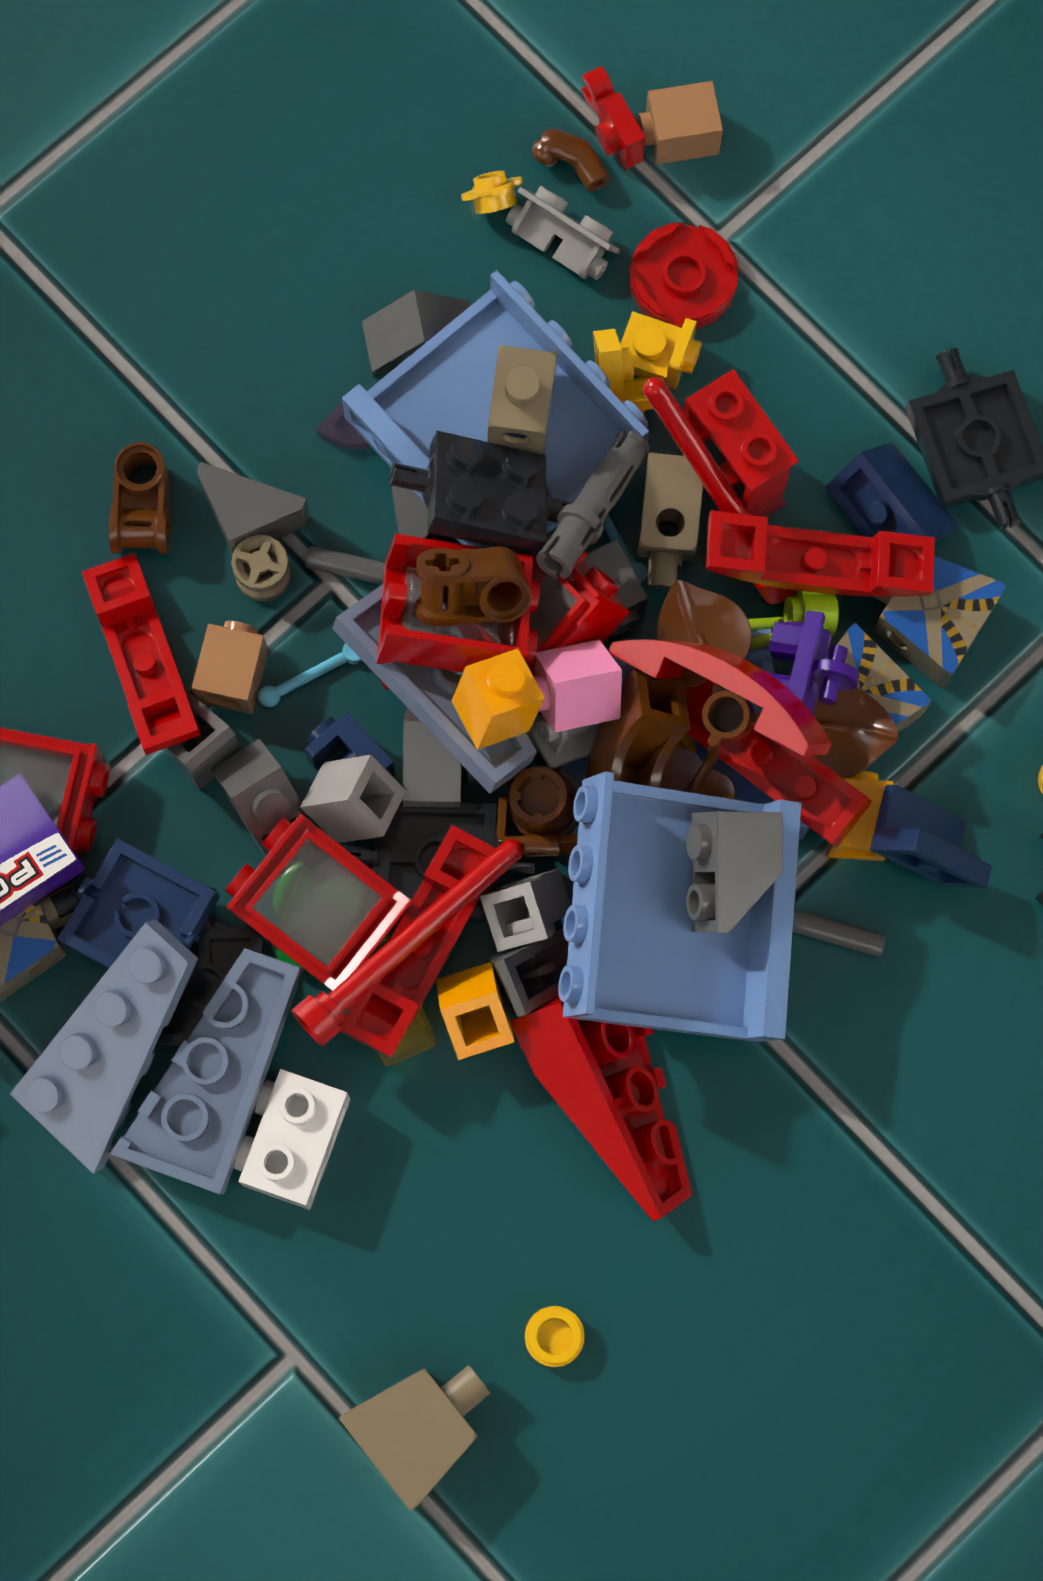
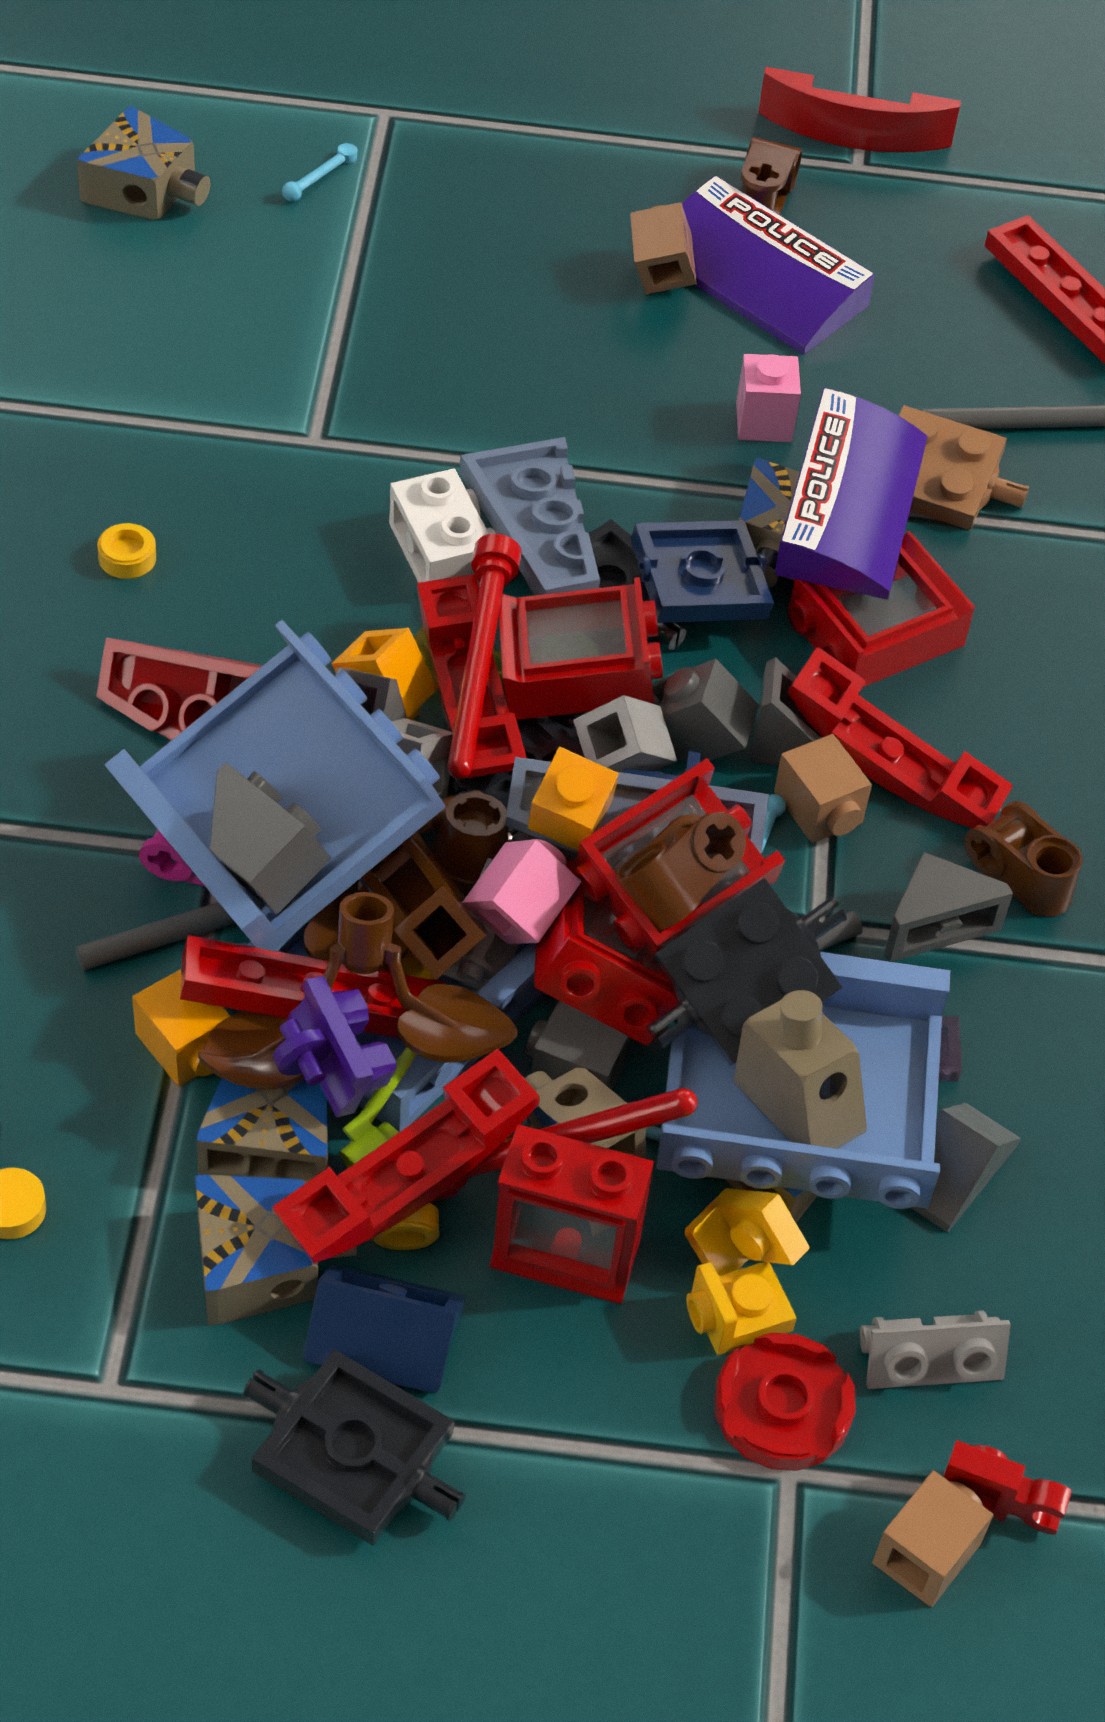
camera: 135 degrees right, 25 degrees down
(96, 1060) = (636, 485): sand blue wing -> none
(261, 555) = (892, 870): dark tan wheel -> none
(417, 1430) = (182, 430): dark tan torso -> none
(492, 192) = (1034, 1326): yellow plate -> none
(574, 150) = (1010, 1432): reddish brown arm -> none
(583, 519) = (644, 1005): dark grey pin -> none
(783, 713) = (381, 956): slope -> none
(925, 840) = (102, 1025): dark blue panel -> none

